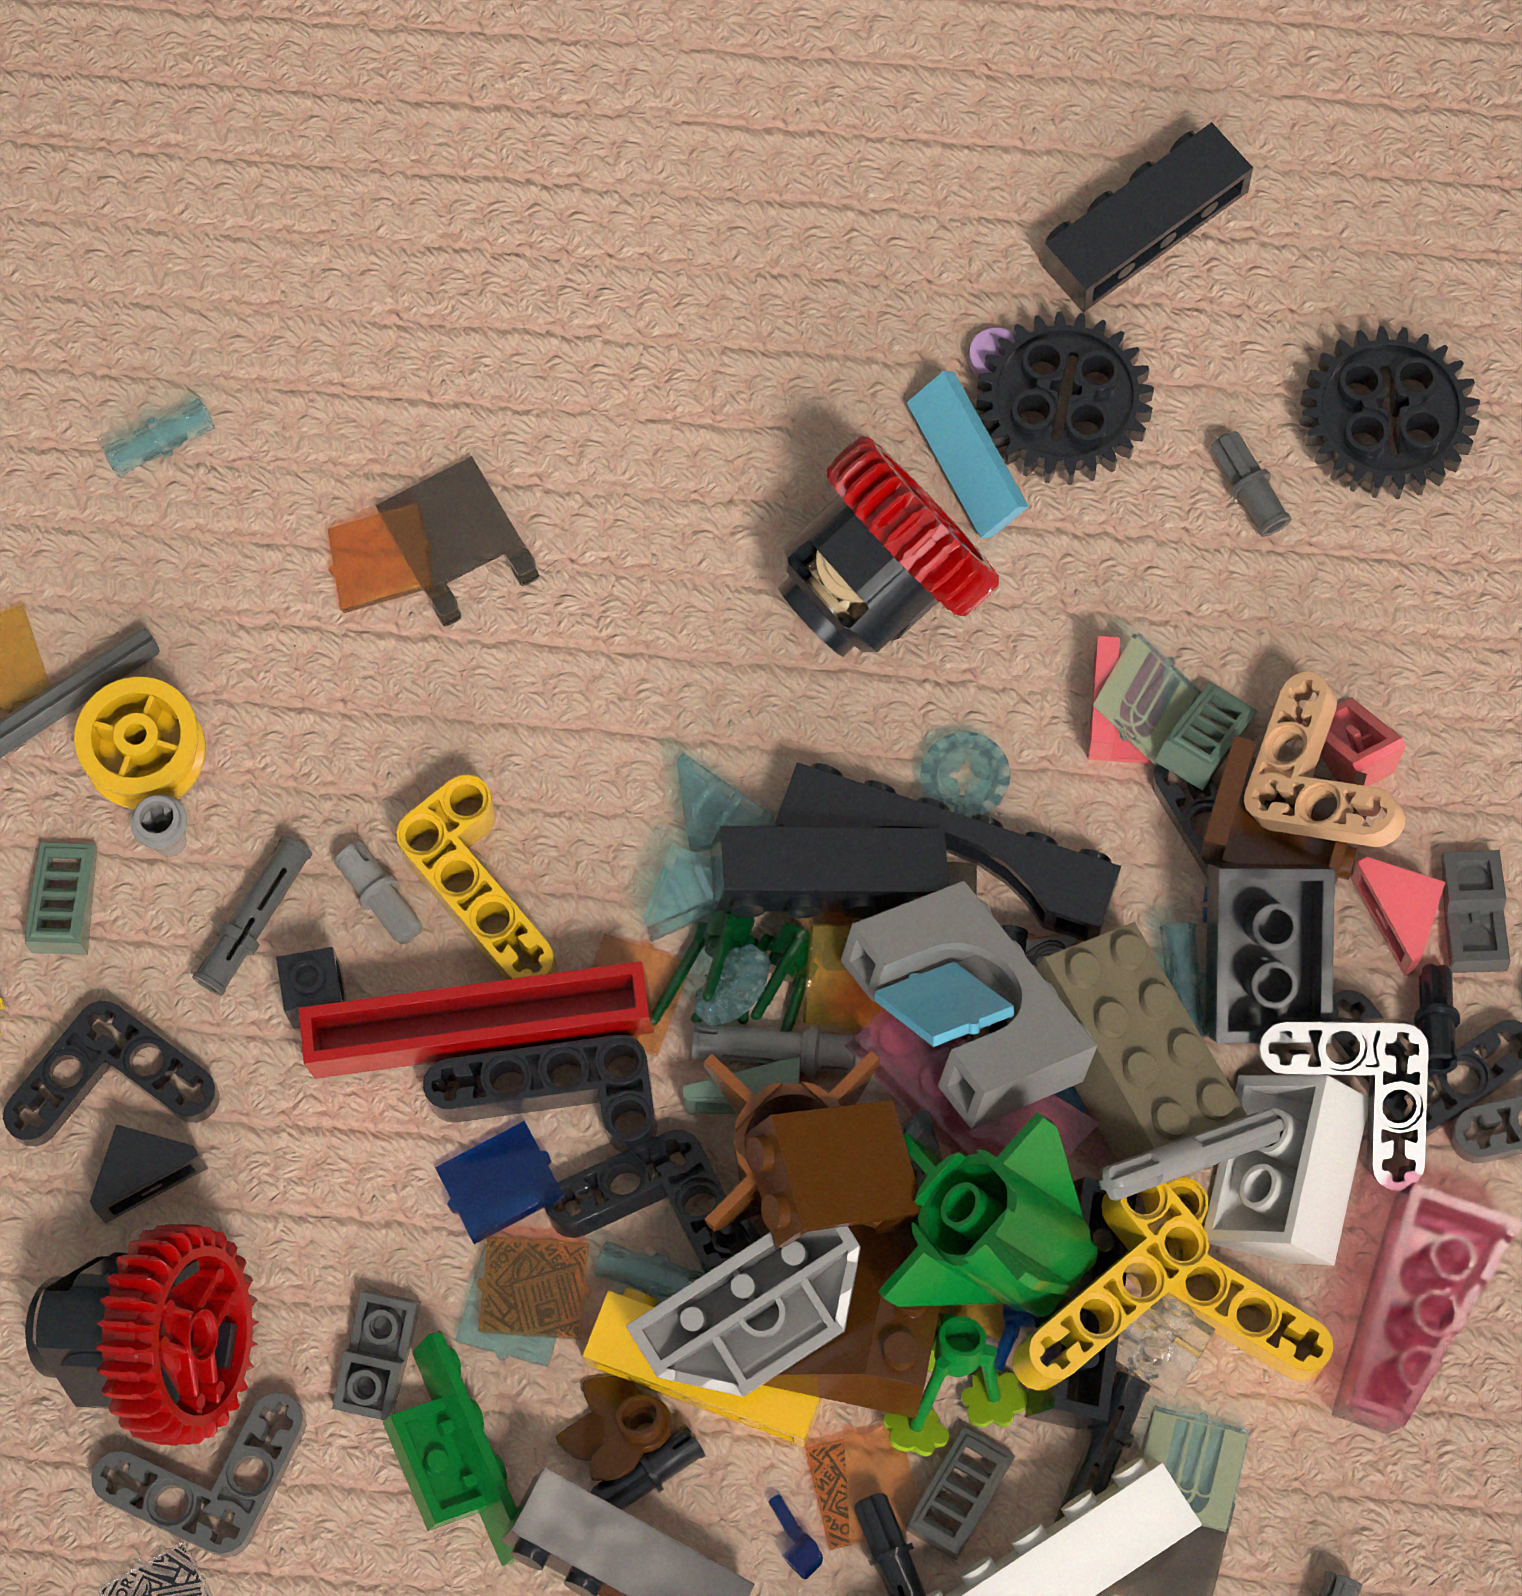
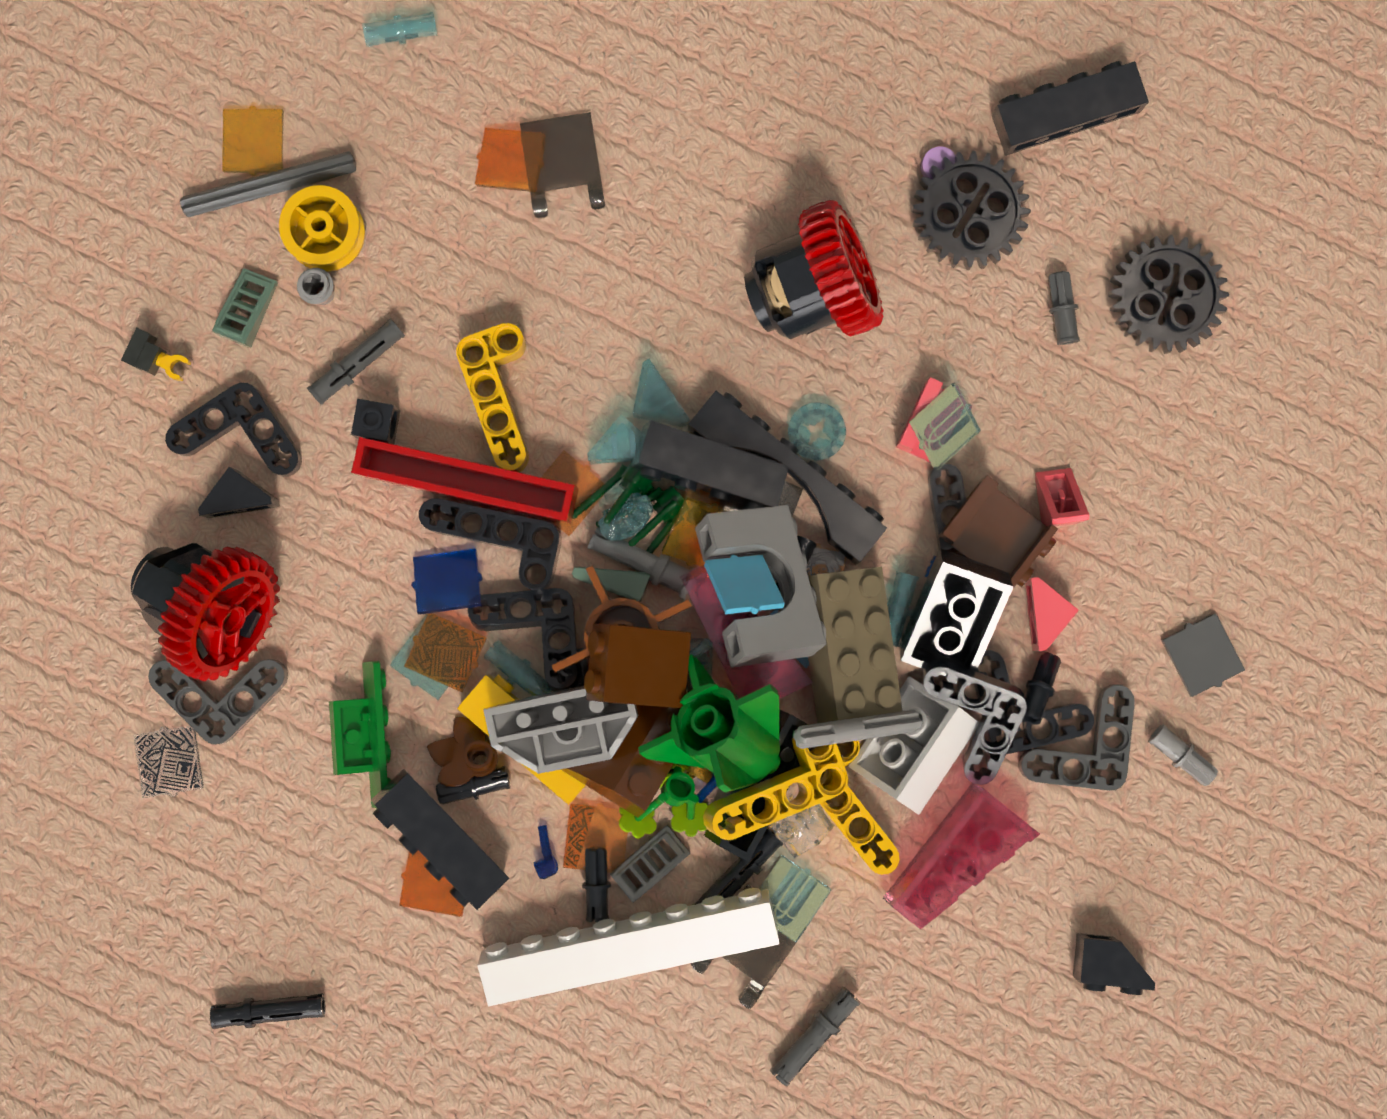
camera: 15 degrees right, 15 degrees up
(376, 1355) = (340, 657): dark grey slope -> none
(378, 892) = (436, 376): light grey axle -> none
(967, 454) = (896, 225): medium azure tile -> none
(1188, 760) = (954, 476): sand green slope -> none
(1296, 781) = (1013, 513): light nougat beam -> none
(1475, 911) = (1090, 629): dark grey slope -> none

